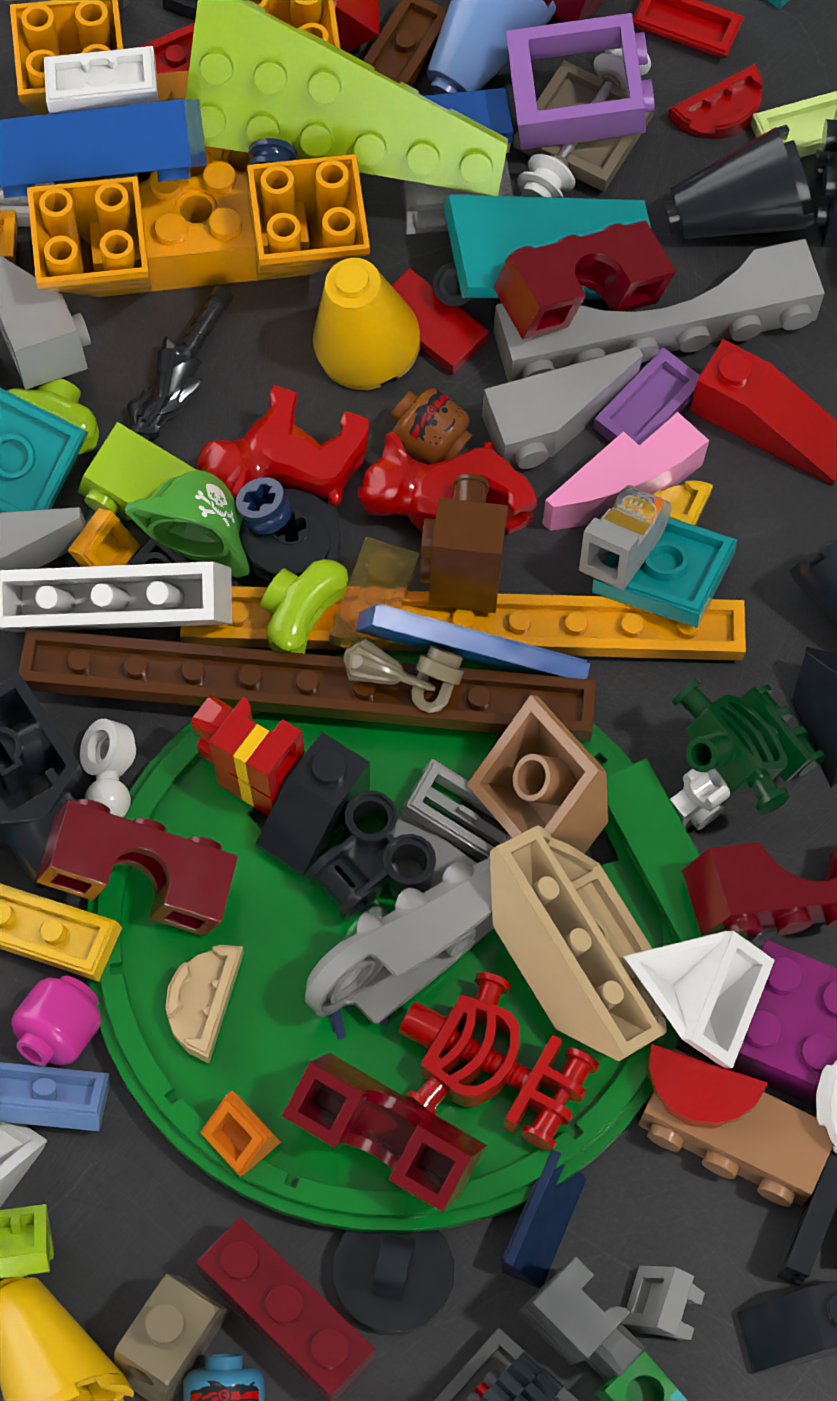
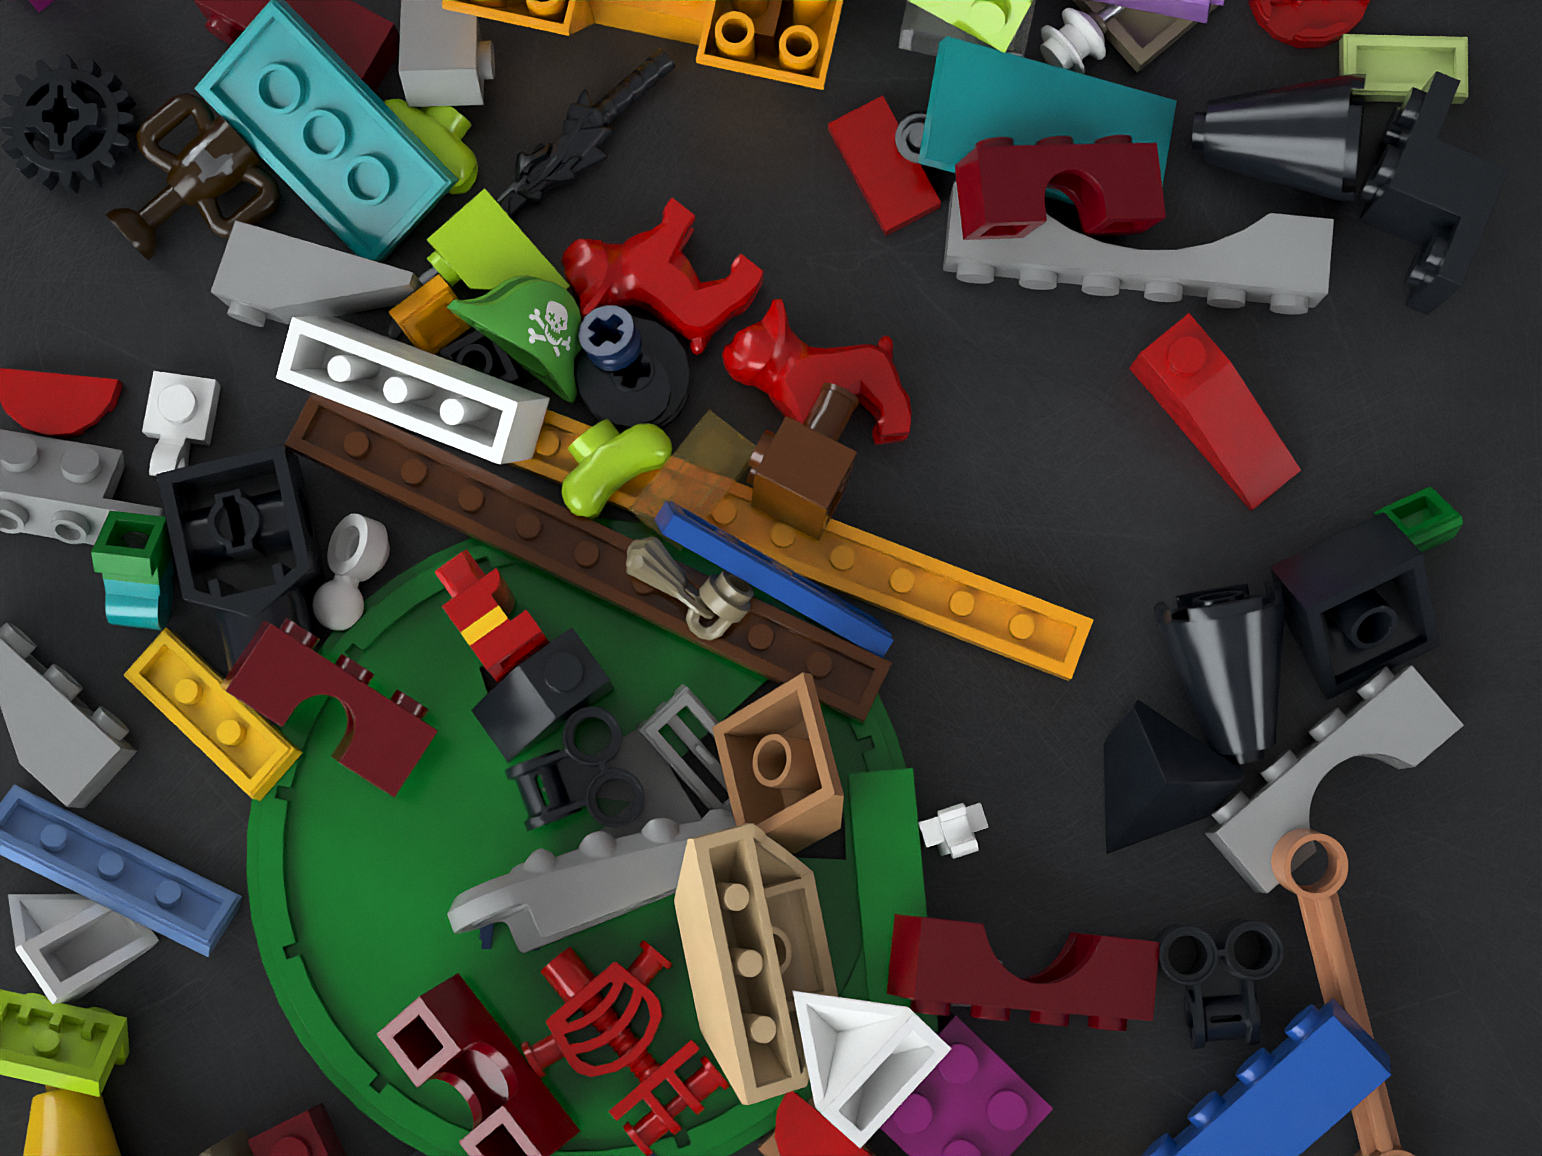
camera: 25 degrees right, 15 degrees up
(56, 1021) = (204, 826): dark pink head -> none
(200, 998) = (354, 858): tan tile -> none
(239, 1134) = (341, 1020): orange slope -> none
(363, 327) = (803, 160): yellow cone -> none
(431, 426) = (831, 299): dark orange head -> none
(547, 410) = (963, 322): light grey slope -> none
(626, 530) = (987, 508): light grey leg -> none
(648, 399) = (1085, 347): medium lavender tile -> none
(656, 464) = (1026, 428): bright pink slope -> none
(677, 574) = (1023, 550): teal tile -> none
(687, 500) = (1070, 478): yellow tile -> none
(747, 742) = (1023, 791): dark green piece -> none

